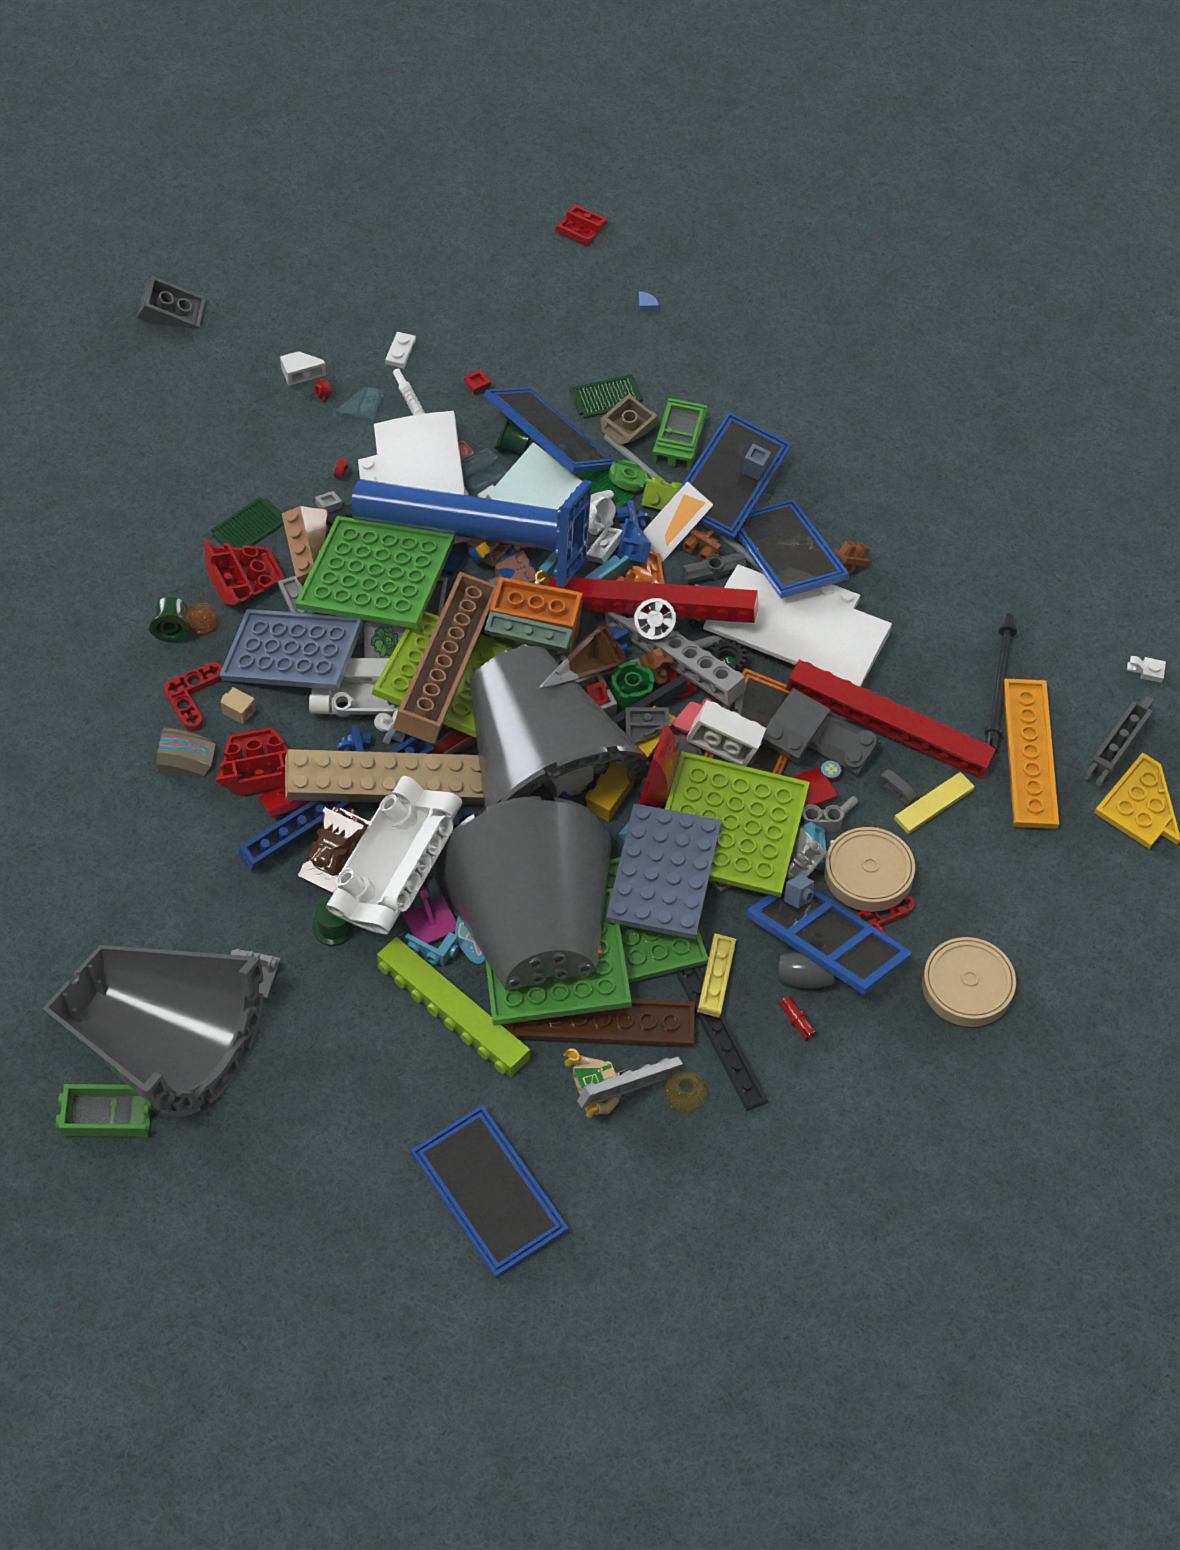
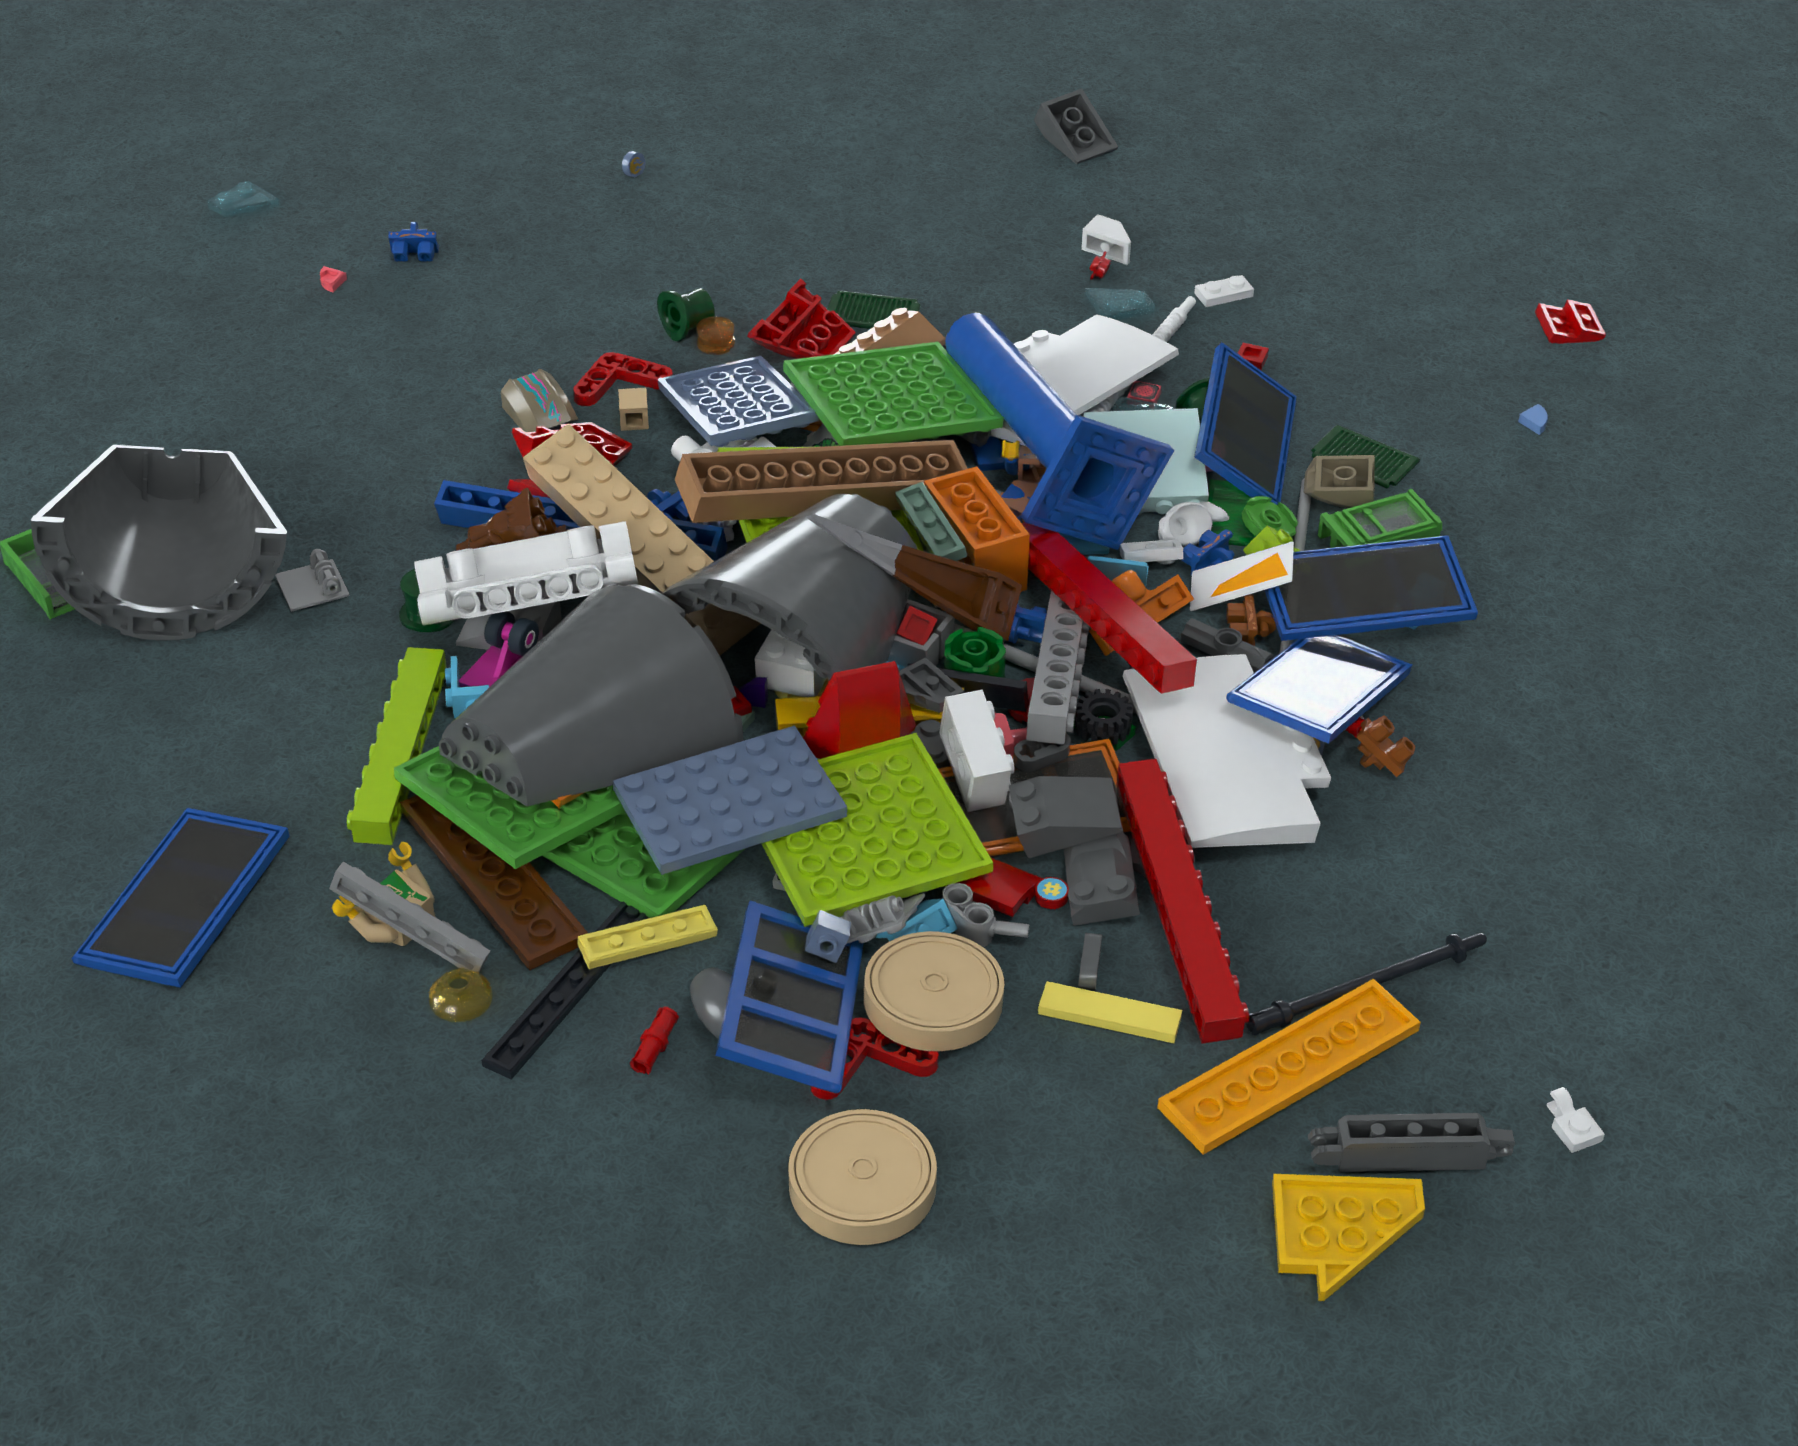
camera: 55 degrees right, 15 degrees down
(341, 468) = (1014, 325): red tile -> none
(634, 543) = (1167, 567): blue wing -> none
(655, 619) = (1057, 612): piece -> none
(656, 661) = (1022, 659): dark orange hips -> none
(755, 461) = (1400, 585): sand blue panel -> none

